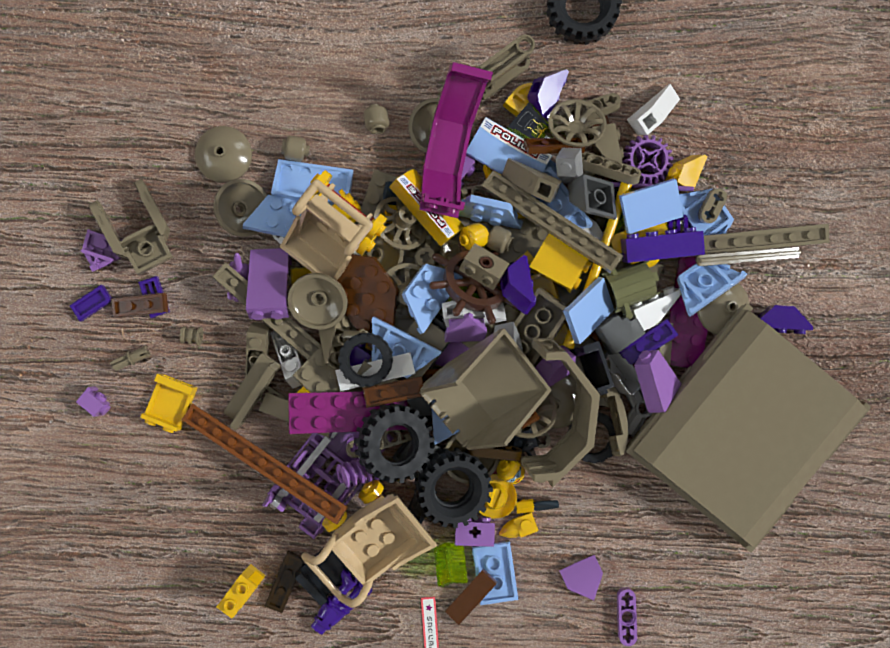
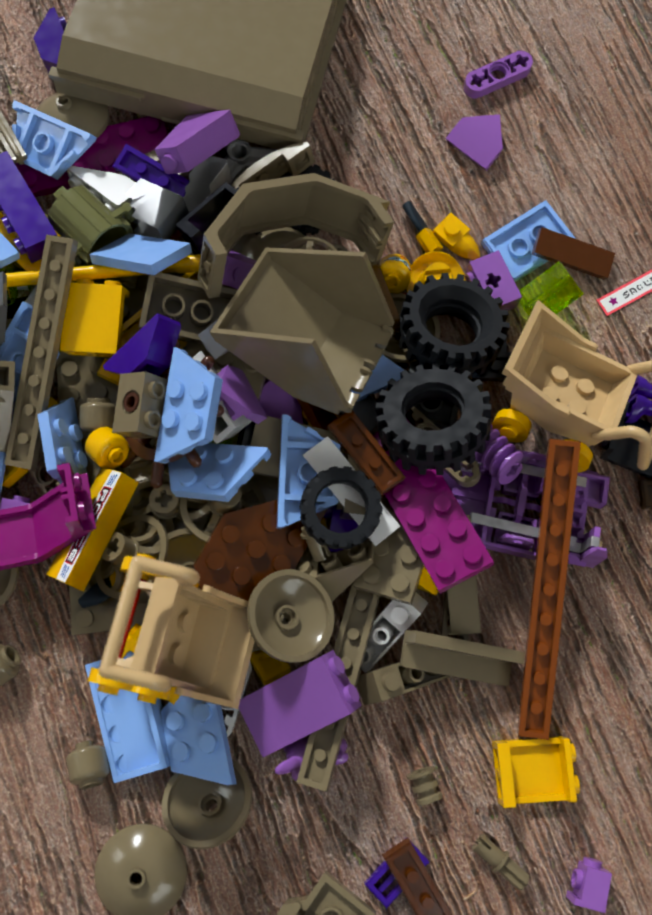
camera: 115 degrees left, 10 degrees down
(467, 295) = (188, 407): none -> light blue wing

